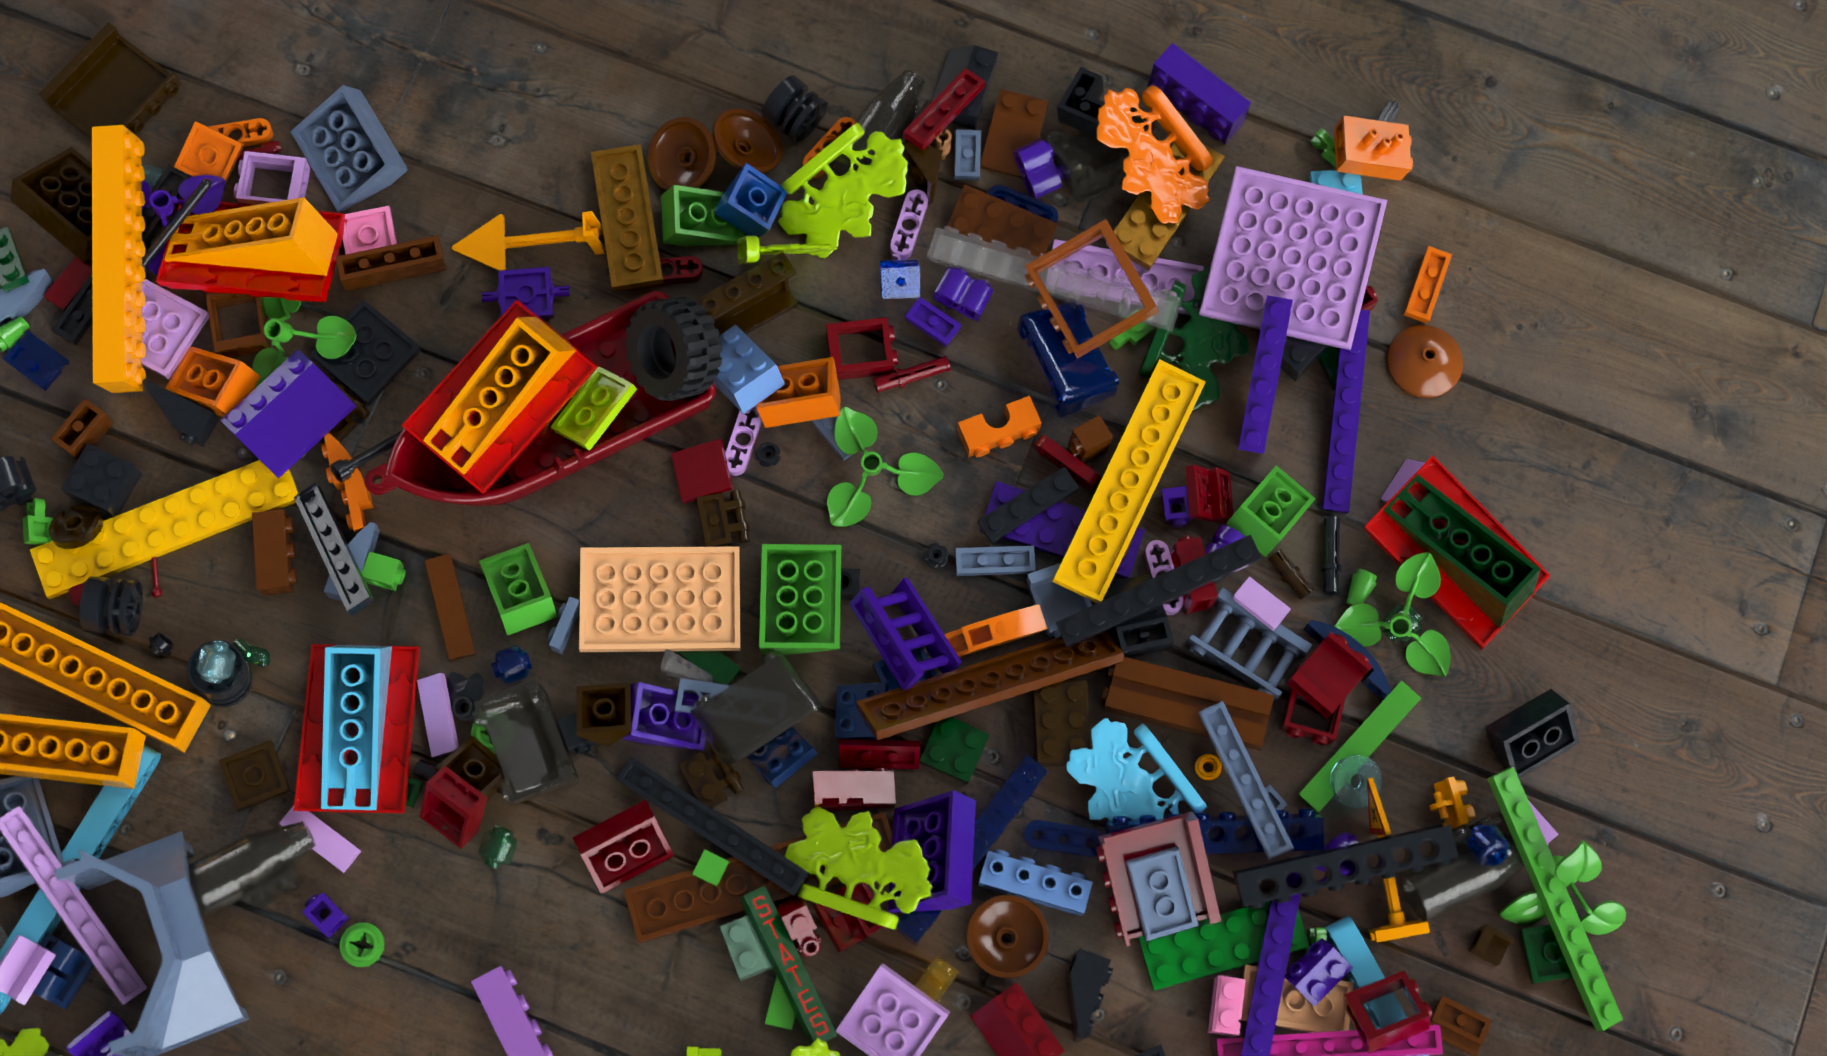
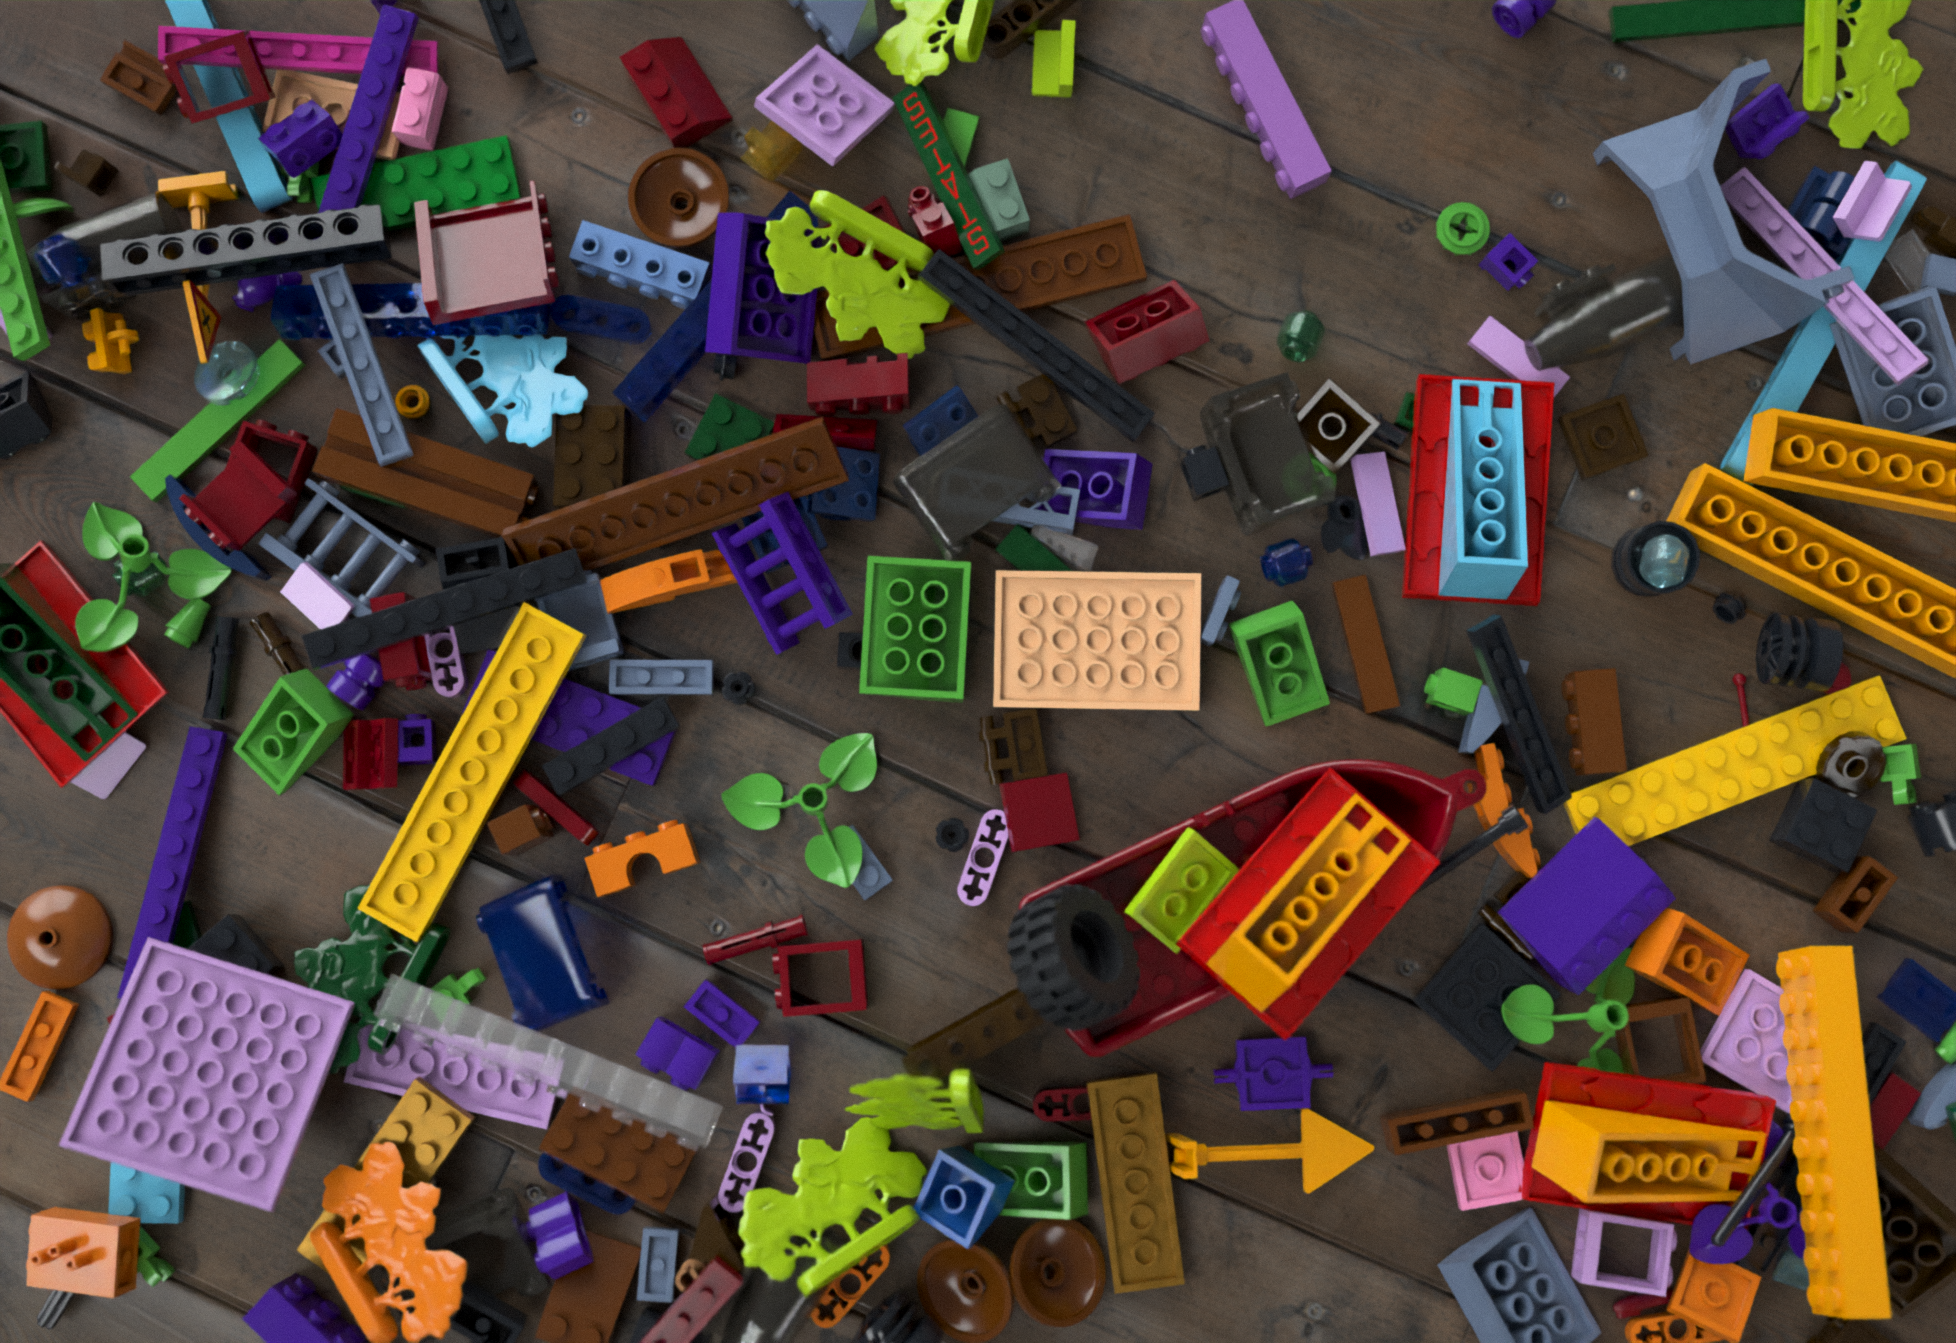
camera: 170 degrees left, 10 degrees up
(186, 417) = (1725, 913): black slope -> none
(252, 653) = (1616, 590): clear green arm -> none
(453, 804) = (1351, 376): dark red window -> none
(604, 712) = (1170, 489): dark brown slope -> none
(710, 868) = (1039, 295): bright green tile -> none
(745, 371) = (975, 938): medium blue brick -> none
(808, 394) = (907, 913): orange slope -> none
(1065, 250) = (546, 990): dark orange window -> none
(1083, 984) = (586, 137): black slope -> none
(1161, 893) = (483, 237): sand blue tile -> none
(1265, 374) = (270, 910): dark purple brick -> none

